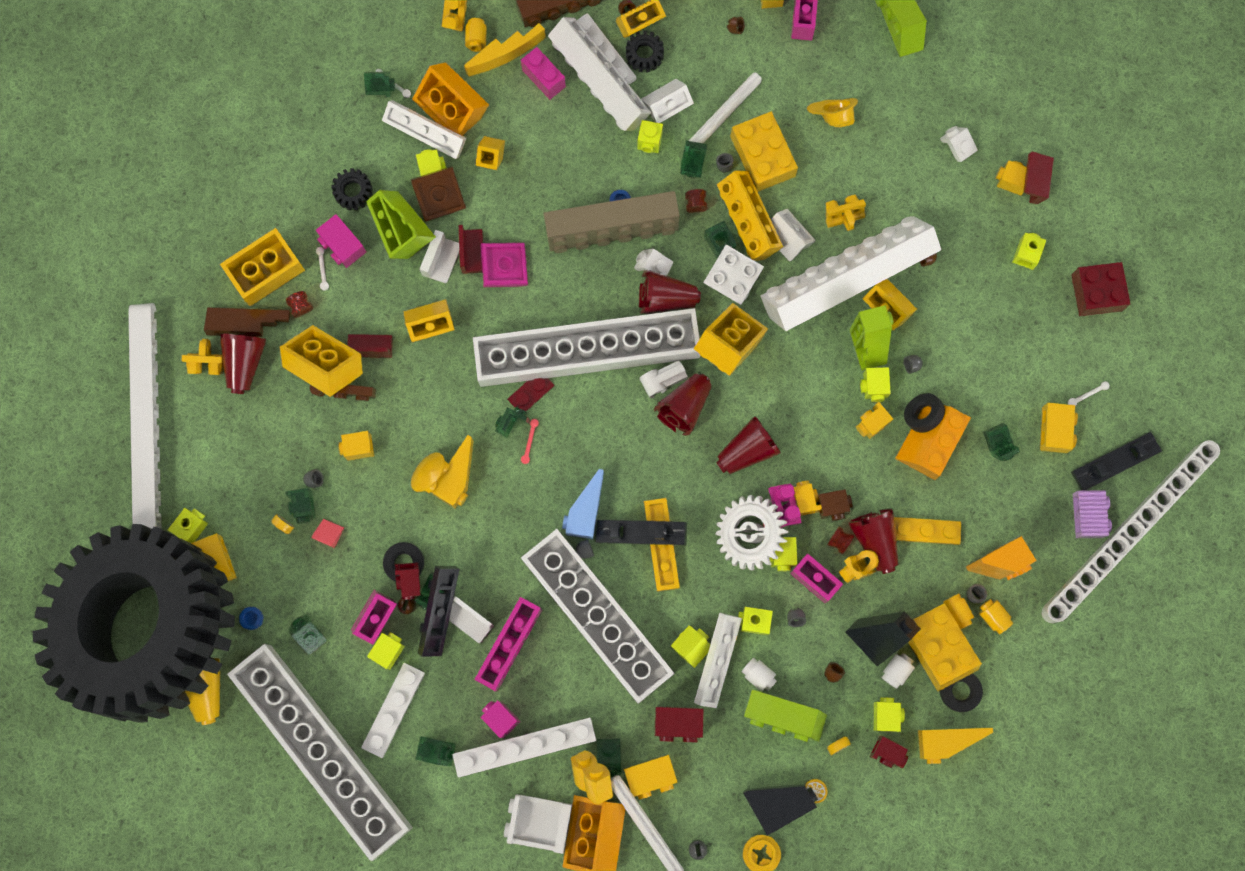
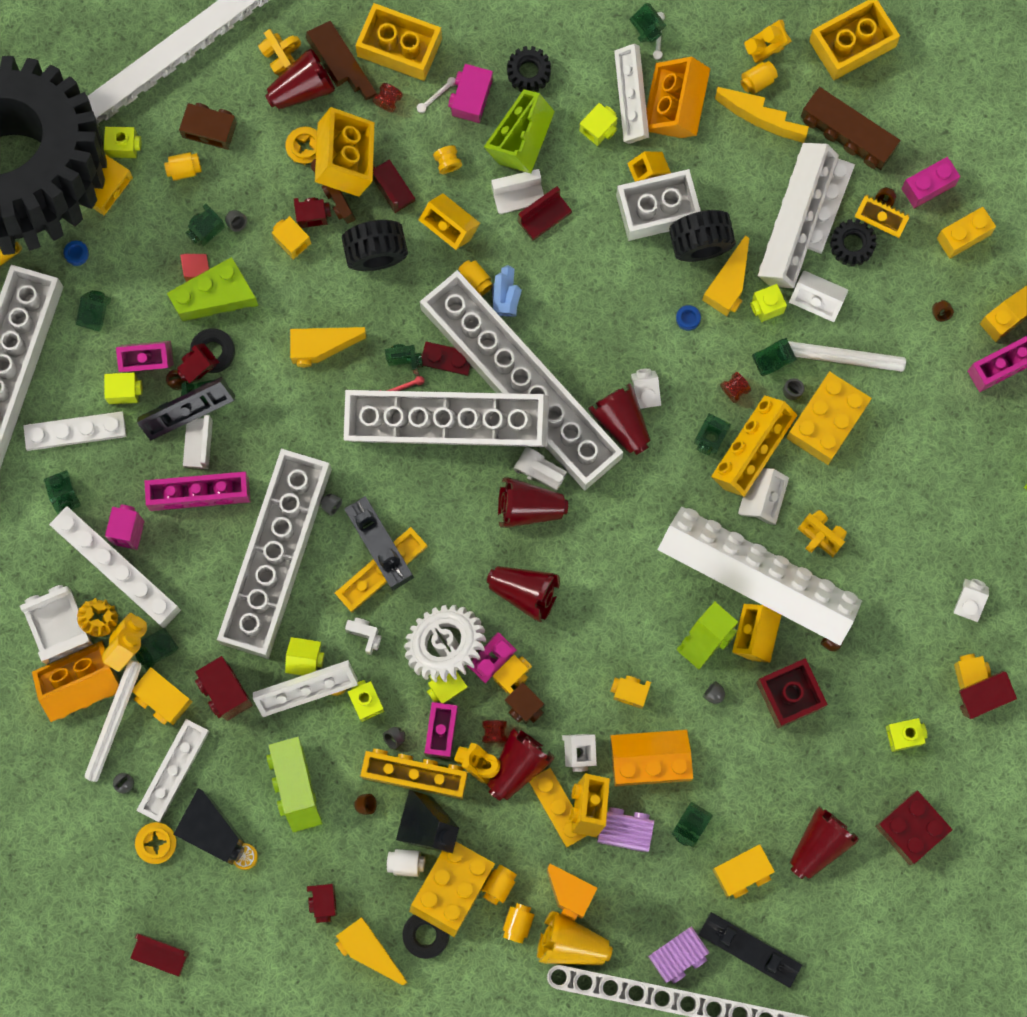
camera: 55 degrees right, 0 degrees up
(223, 451) = (208, 125): none -> reddish brown brick
(241, 491) = (183, 166): none -> yellow brick
(281, 386) = (302, 135): none -> yellow gear
(282, 524) = (176, 221): yellow tile -> none
(348, 417) = (311, 212): none -> dark red brick
(358, 532) = (213, 292): none -> lime wedge
(379, 292) = (447, 159): none -> yellow wheel
(409, 386) = (374, 245): none -> black tyre
(428, 472) = (307, 316): yellow dish -> none
(438, 193) = (577, 148): reddish brown tile -> none
(484, 328) = (476, 276): none -> yellow brick
(504, 265) = (551, 253): dark pink tile -> none
(513, 316) = (505, 294): none -> light blue rock
(522, 164) = (656, 203): none -> white brick
(543, 73) = (763, 163): dark pink brick -> none
(563, 792) = (96, 627): none -> yellow gear
(569, 147) = (702, 235): none -> black tyre
(582, 419) = (446, 418): none -> white brick
(583, 513) = (367, 479): light blue slope -> none
(612, 222) = (656, 322): dark tan brick -> none
(615, 153) = (728, 285): none -> yellow slope
(697, 588) = (361, 628): none -> white bracket
(714, 804) = (173, 770): none -> white plate
(730, 339) = (615, 504): yellow brick -> none
(733, 274) = (684, 468): white hinge -> none
(759, 675) = (317, 736): white brick -> none
(835, 112) = (919, 458): yellow piece -> none
(837, 620) = (414, 775): none -> yellow brick
(838, 745) = (299, 851): yellow tile -> none
(876, 384) = (669, 670): neon yellow brick -> none
(888, 715) = (357, 879): neon yellow brick -> none
(895, 487) = (587, 746): none -> white brick
(929, 422) = (670, 743): black tyre -> none
(943, 505) = (590, 805): none -> yellow brick
(950, 308) = (791, 693): none -> dark red brick
(976, 492) = (627, 831): none -> lavender brick
(979, 591) = (532, 894): dark grey hinge -> none
(1035, 587) = (571, 943): none -> yellow cone
(1073, 360) = (821, 844): none -> dark red cone
(1104, 386) = (782, 872): white hinge -> none

